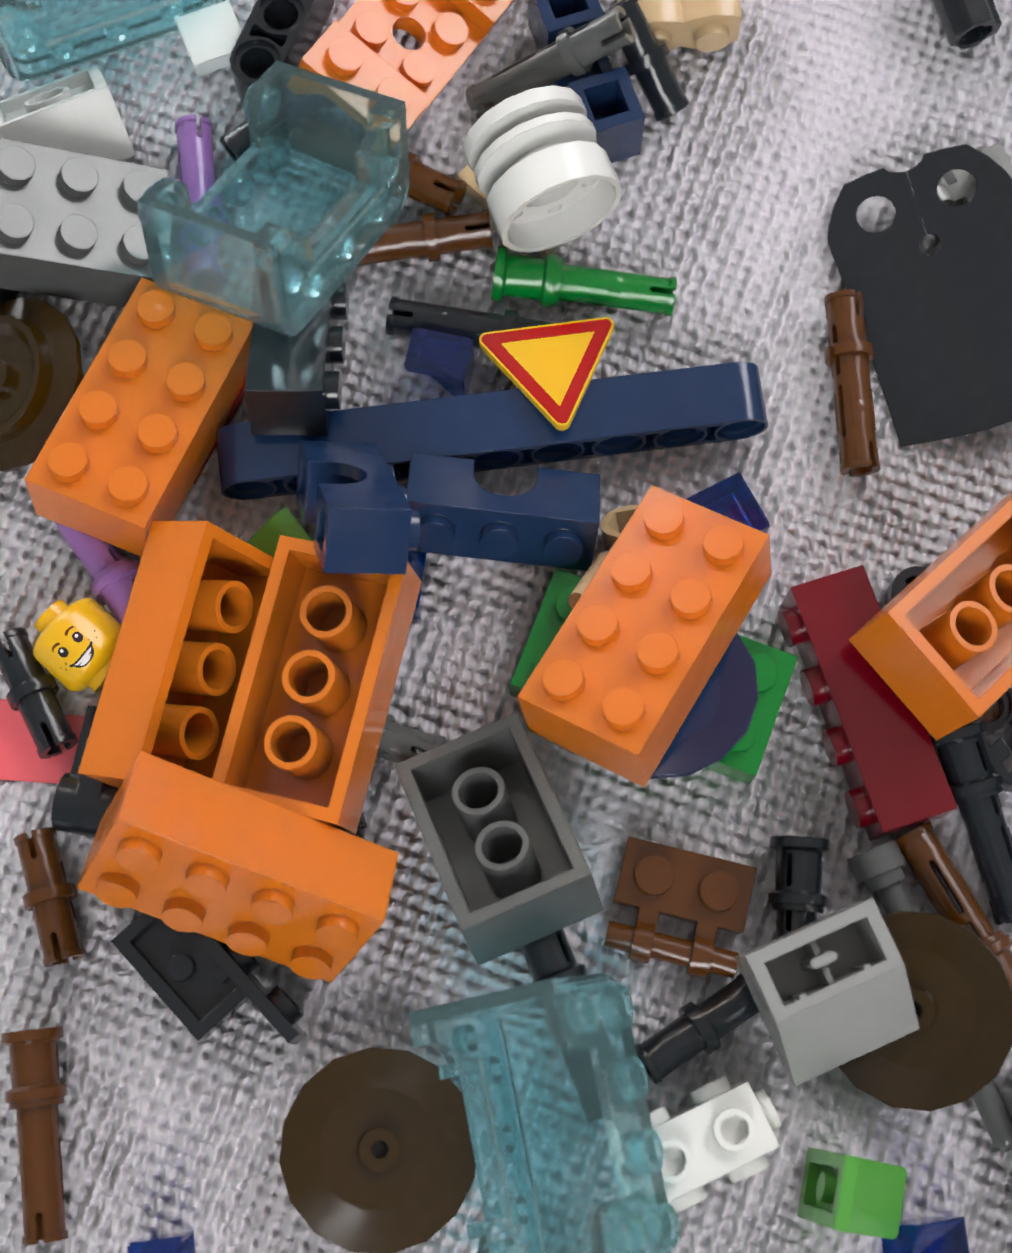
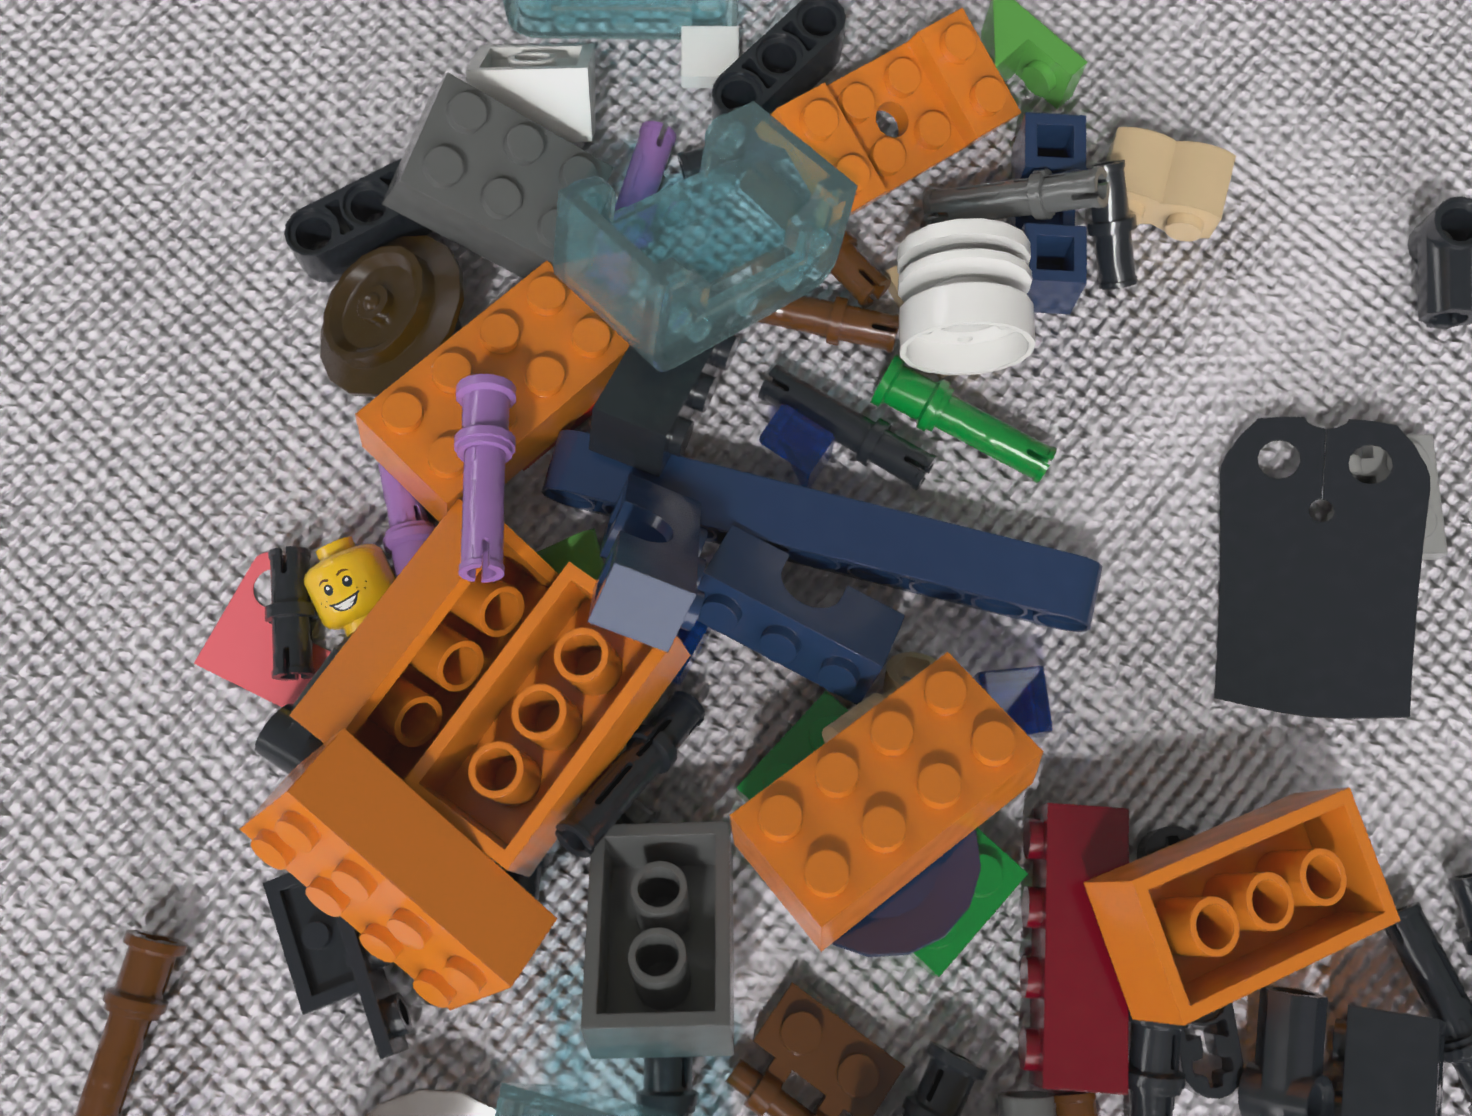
camera: 20 degrees right, 0 degrees up
(49, 896) = (226, 814): reddish brown pin -> none
(163, 462) = (484, 448): none -> medium lavender pin
(417, 687) = (648, 752): none -> black pin
(551, 362) = (901, 488): piece -> none
(850, 368) = (1185, 632): reddish brown pin -> none

